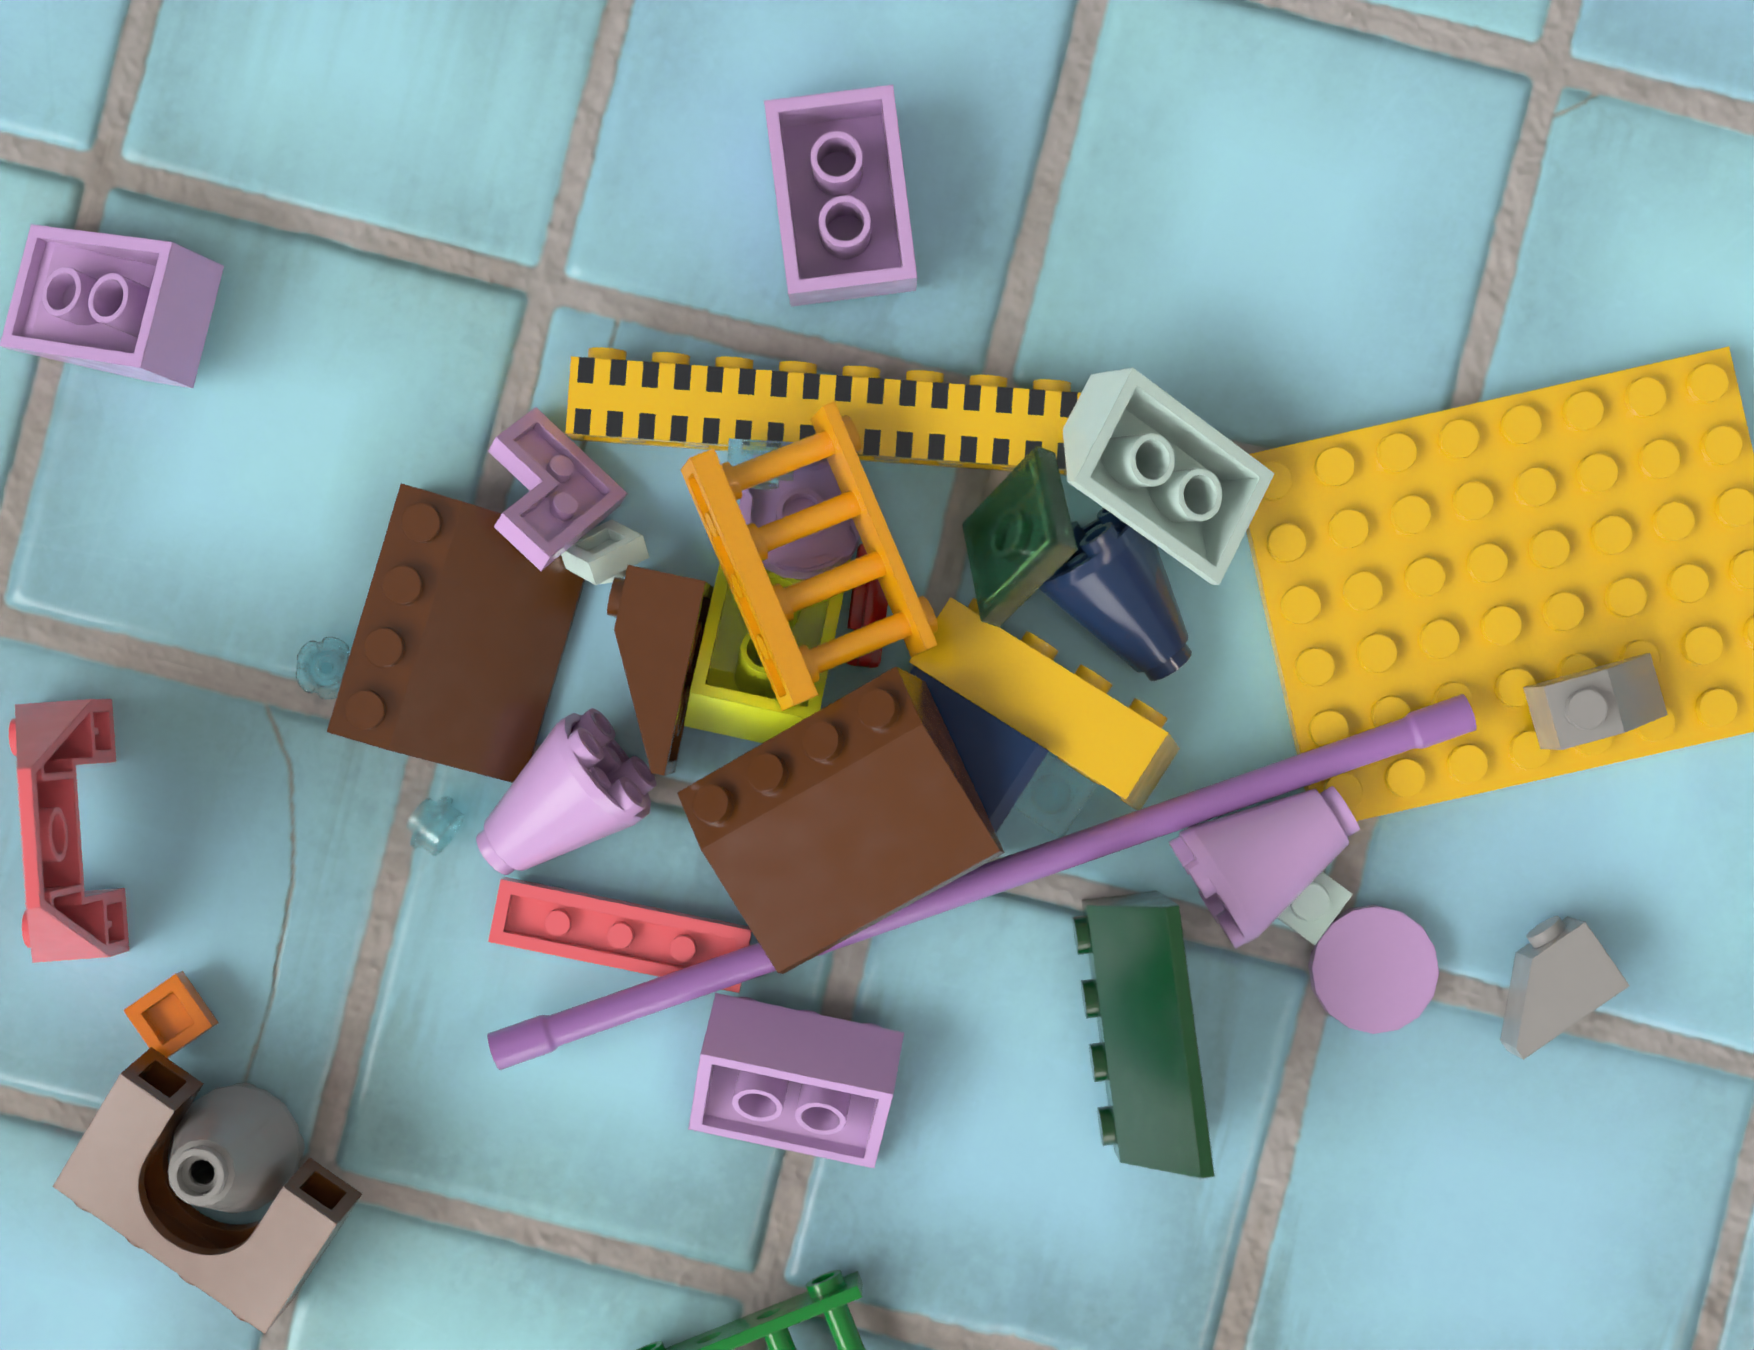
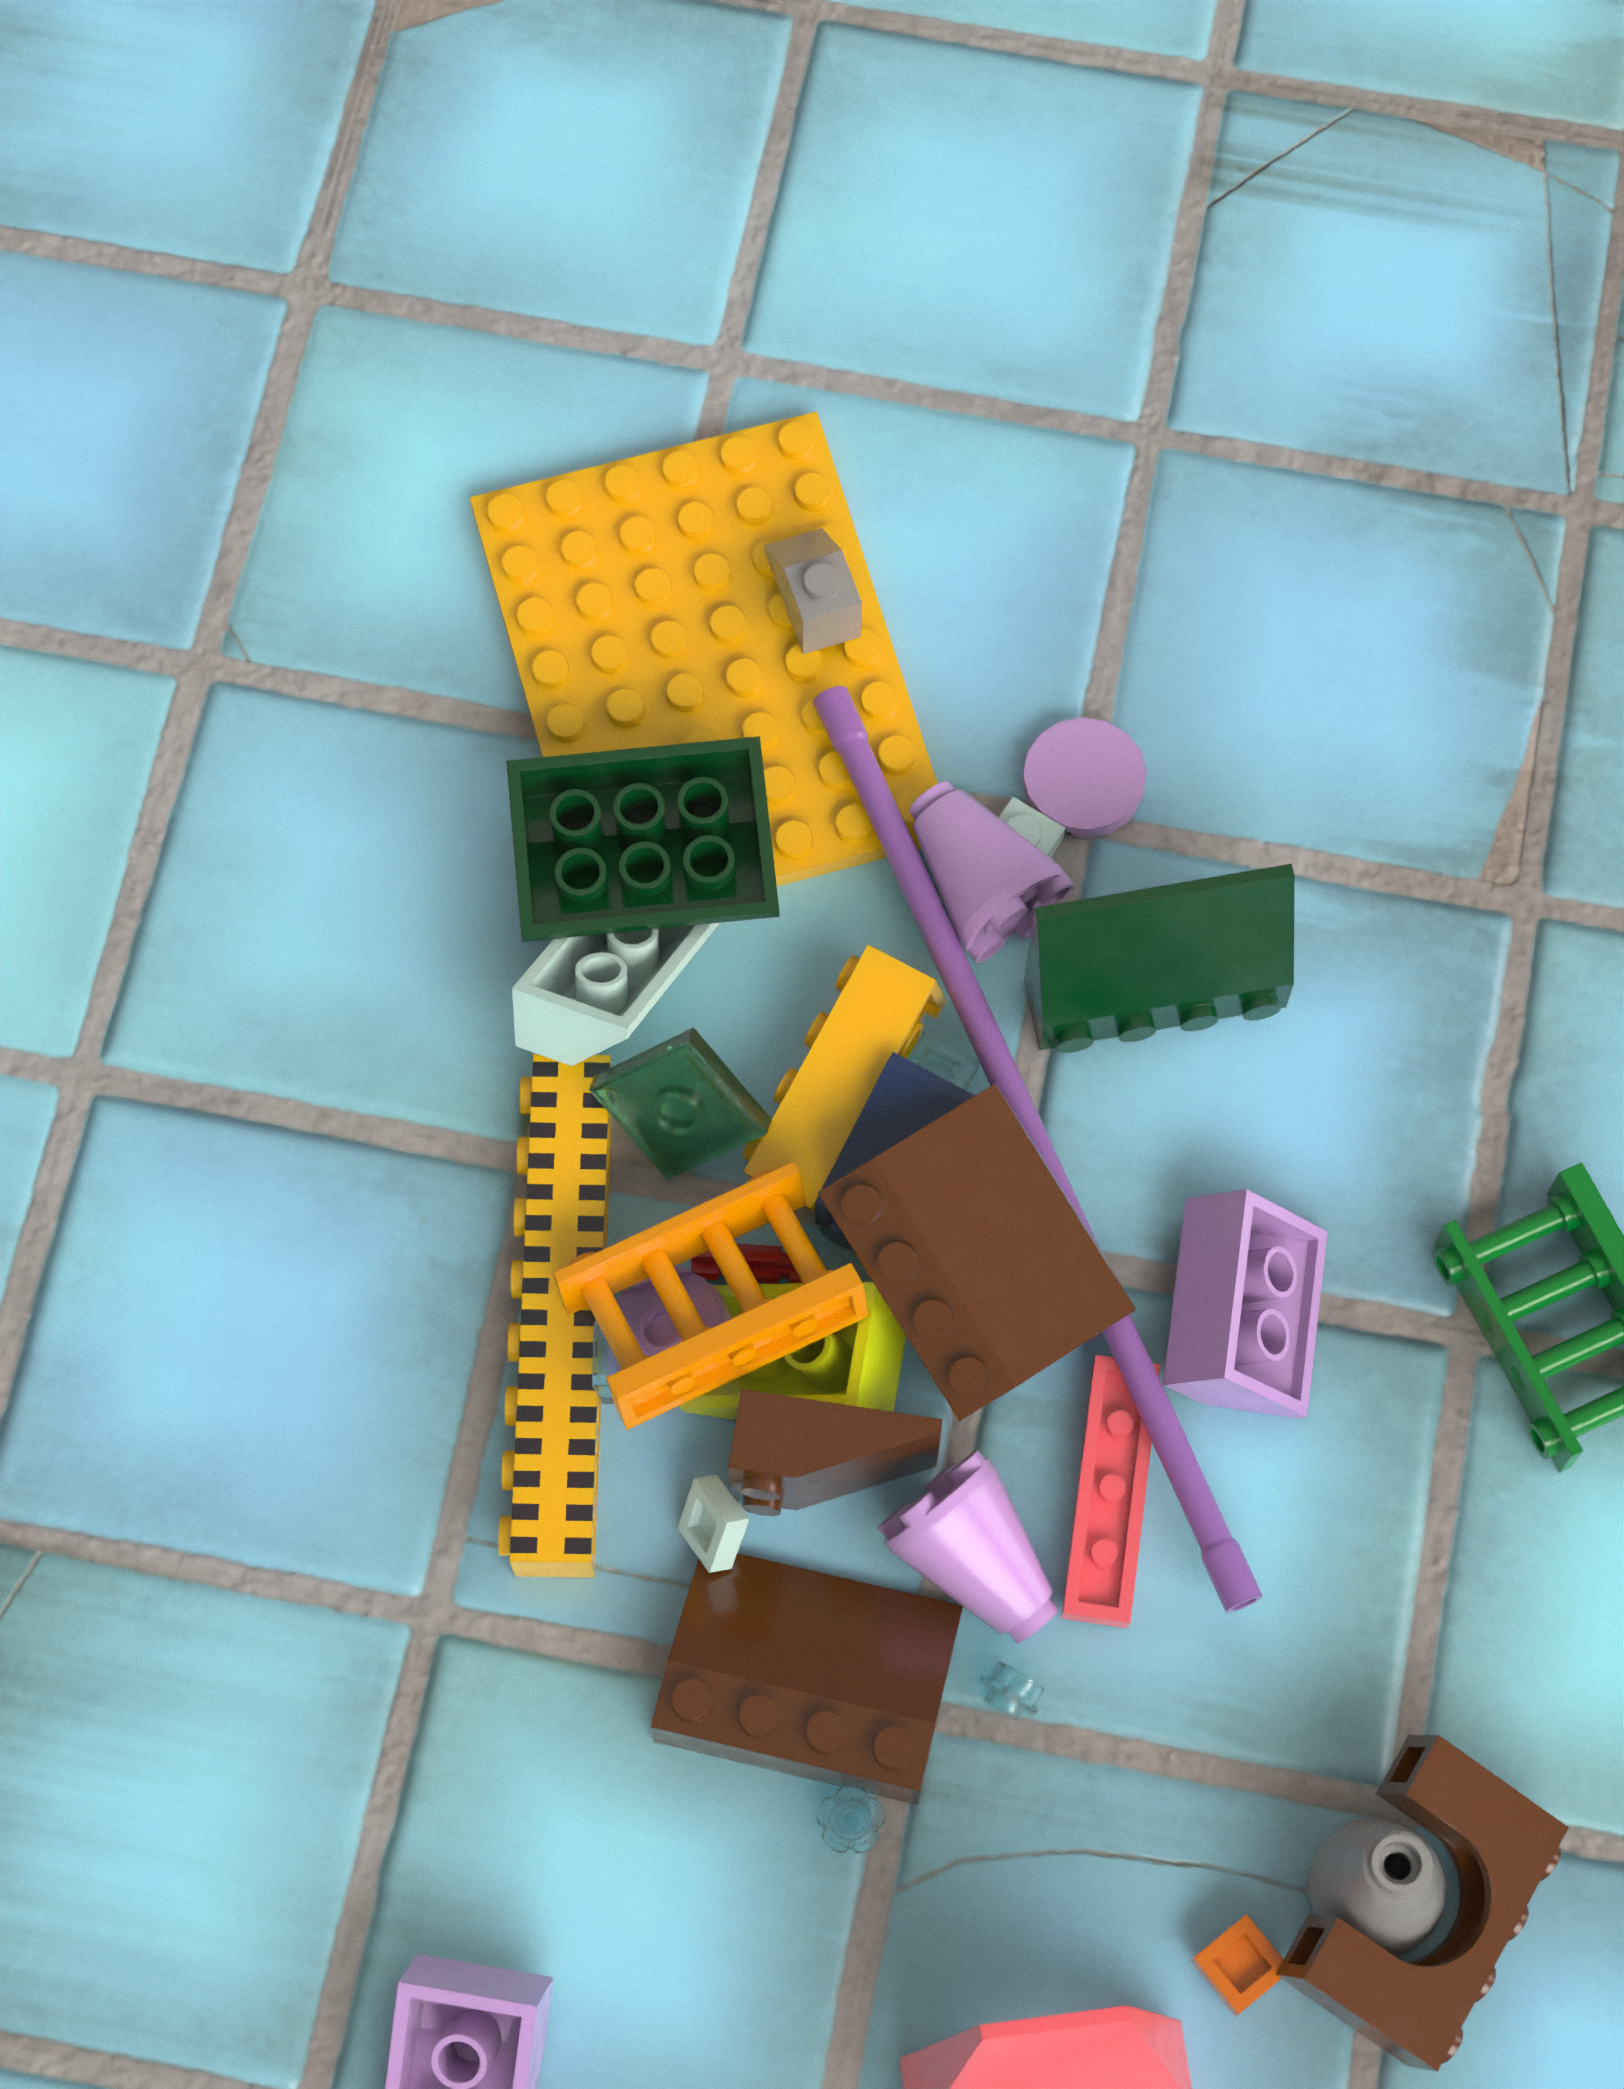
camera: 95 degrees left, 20 degrees down
(564, 486) = (648, 1566): lavender plate -> none
(841, 195) = (336, 1302): lavender brick -> none
(1122, 596) = (735, 1007): dark blue cone -> none
(1300, 507) = (641, 839): none -> dark green slope
(1556, 984) = (1085, 615): light grey slope -> none

